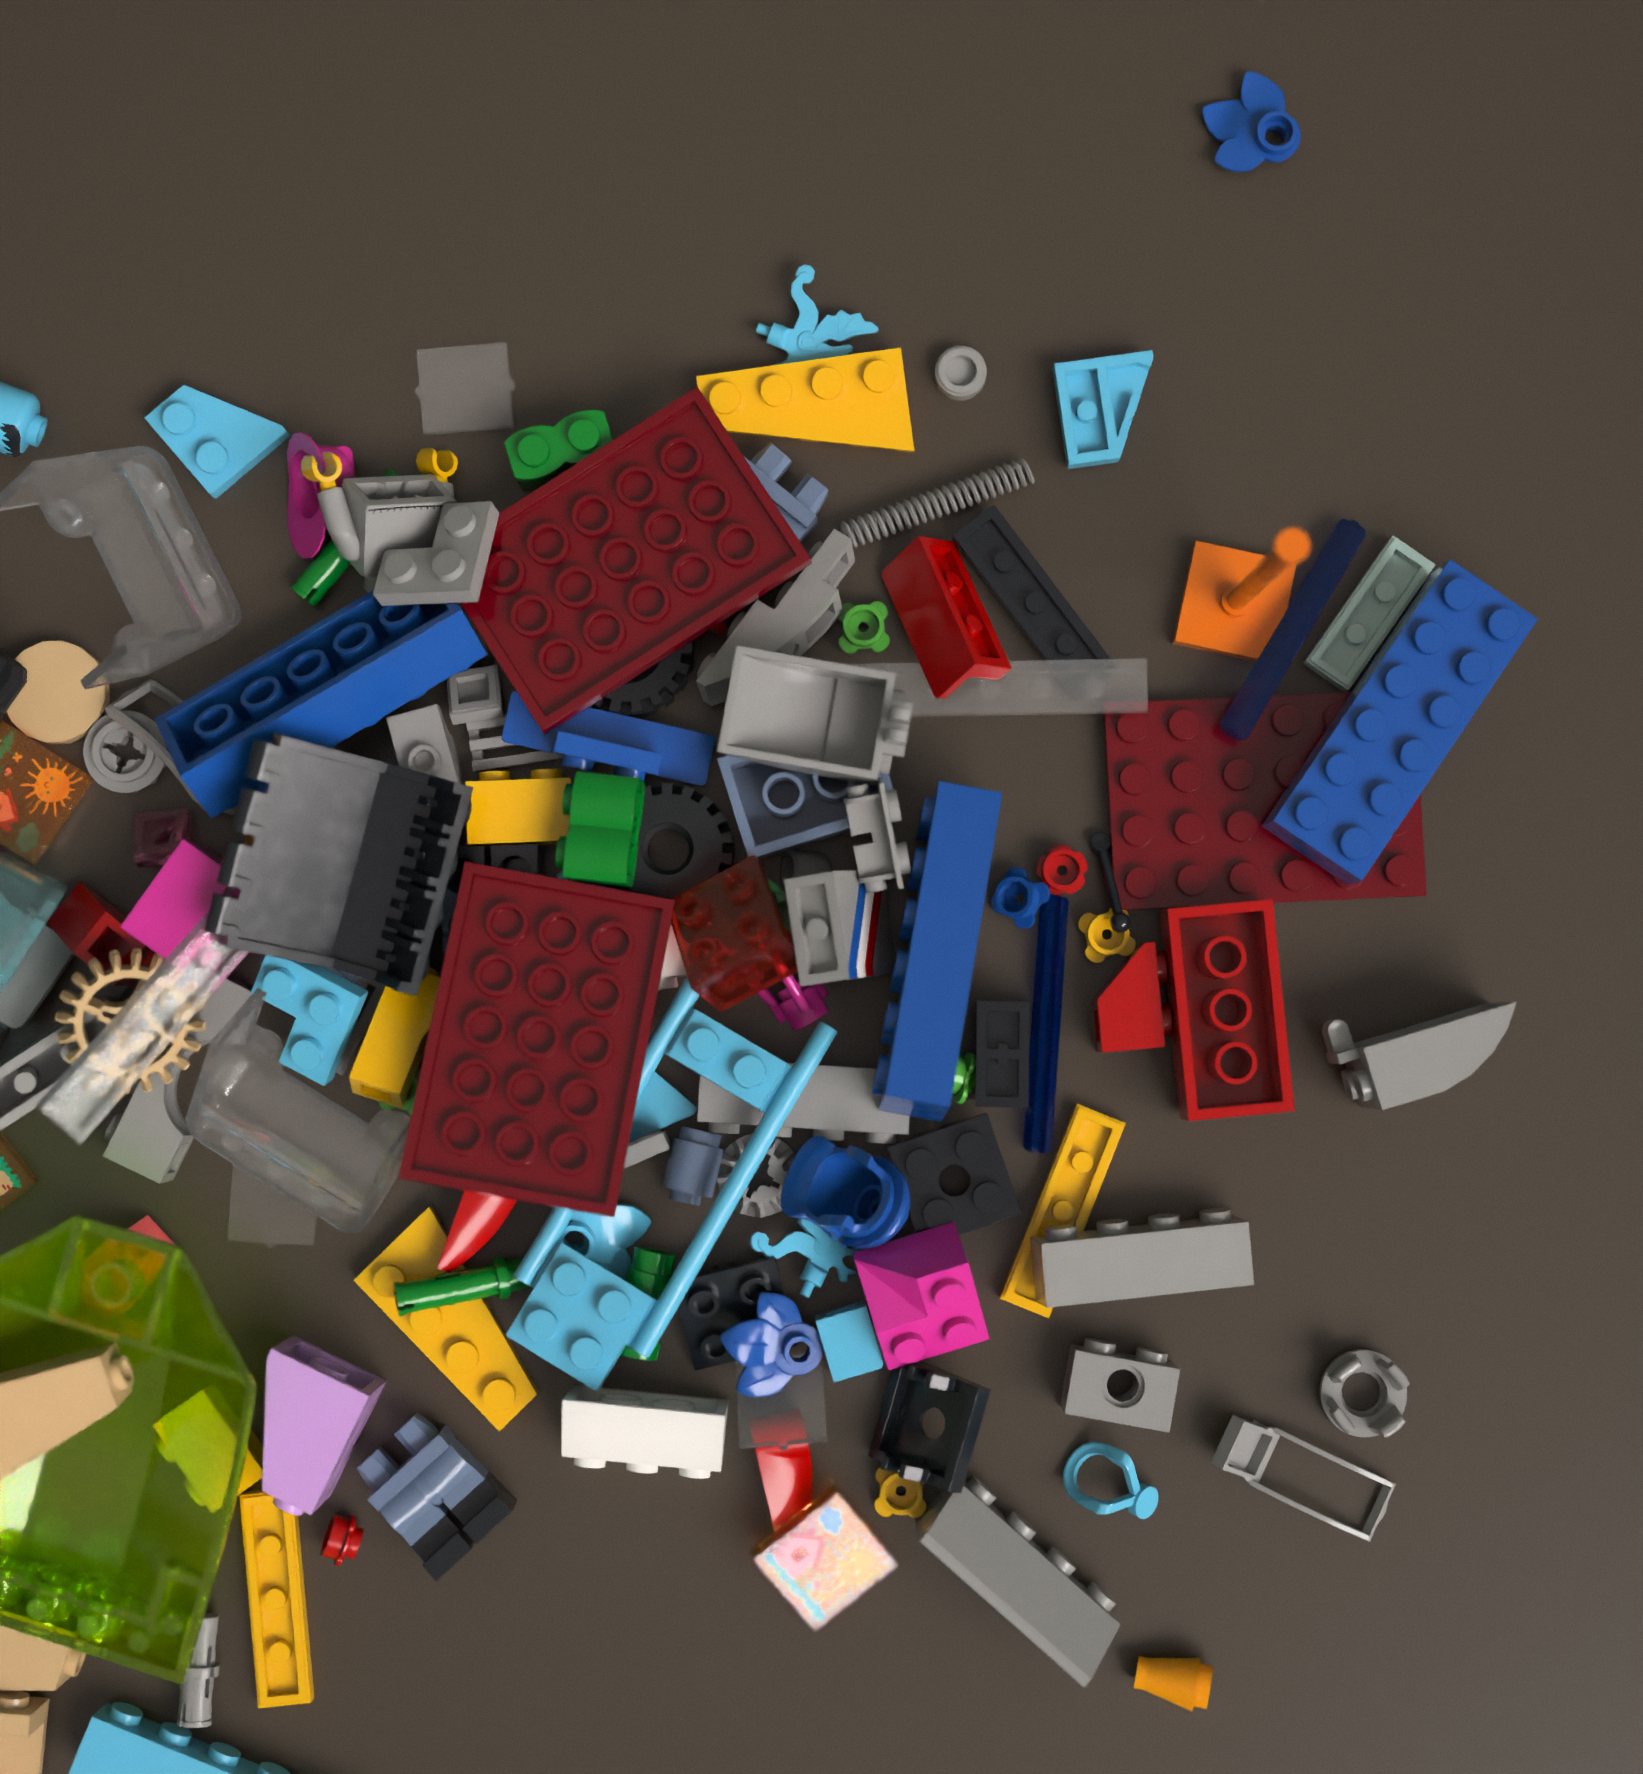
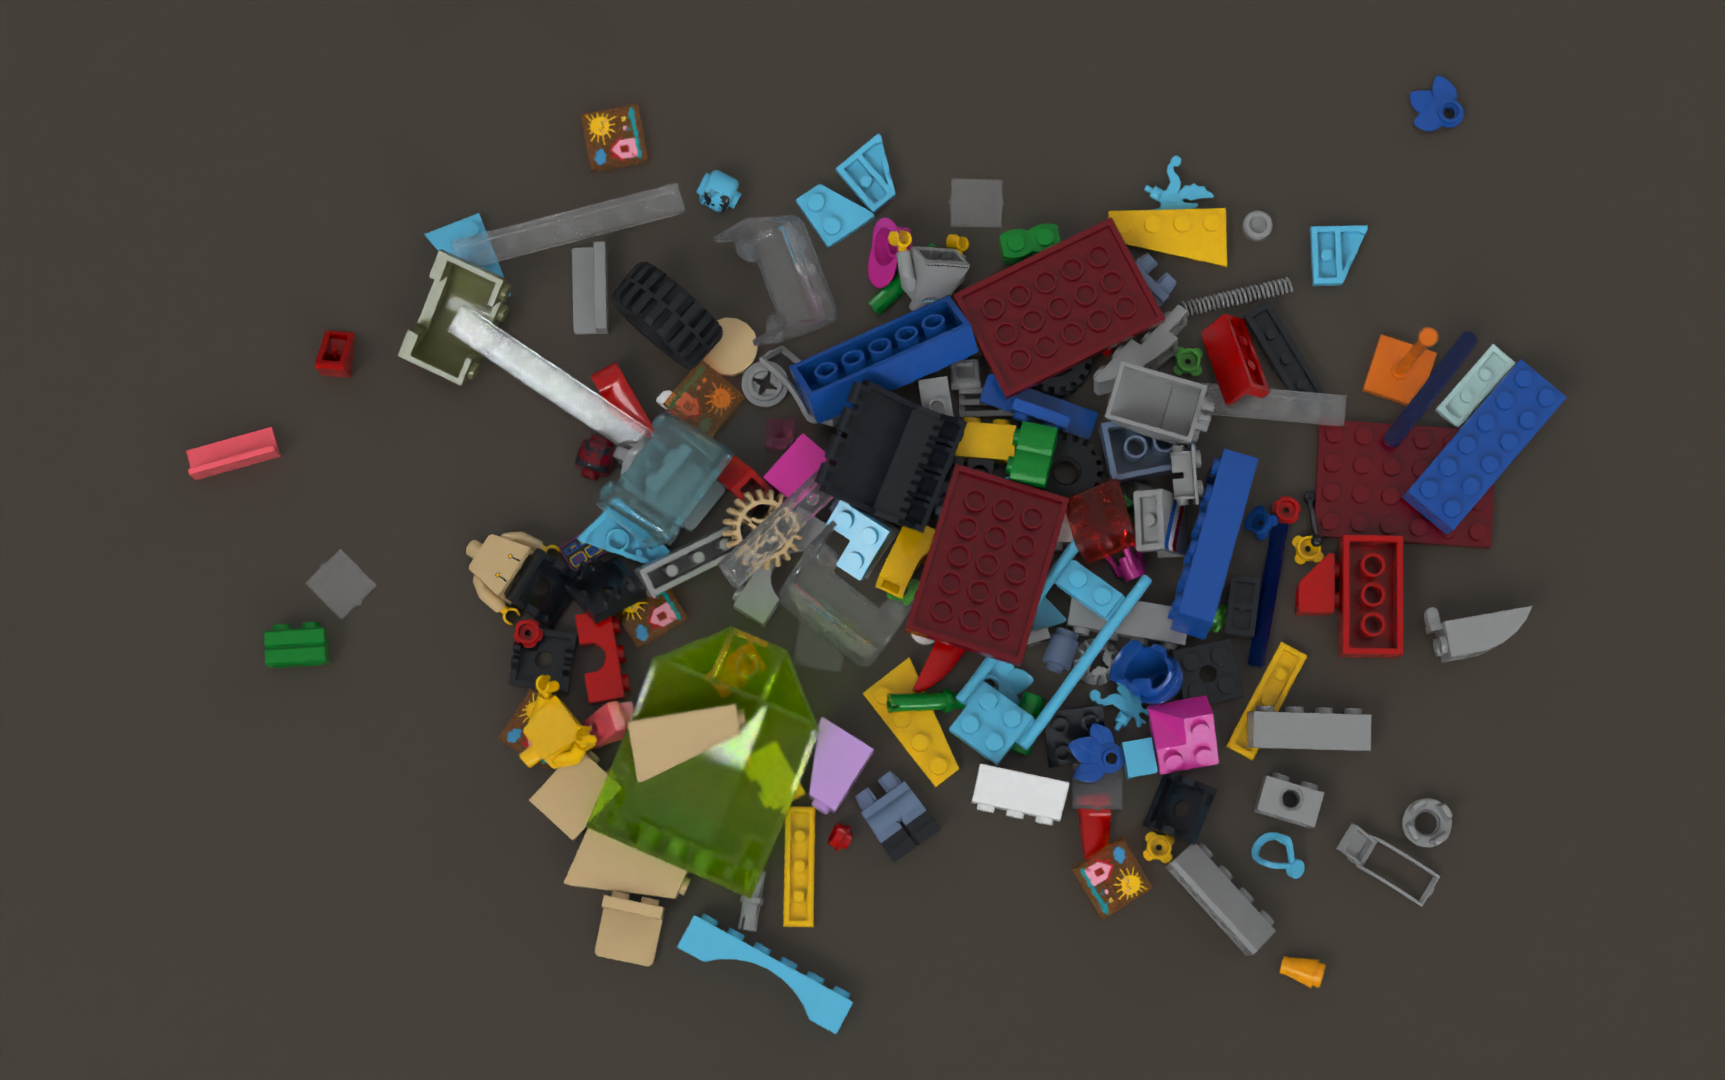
camera: 10 degrees right, 5 degrees down
(269, 358) = (869, 175): none -> medium azure wing
(447, 571) = (963, 303): light grey plate -> none

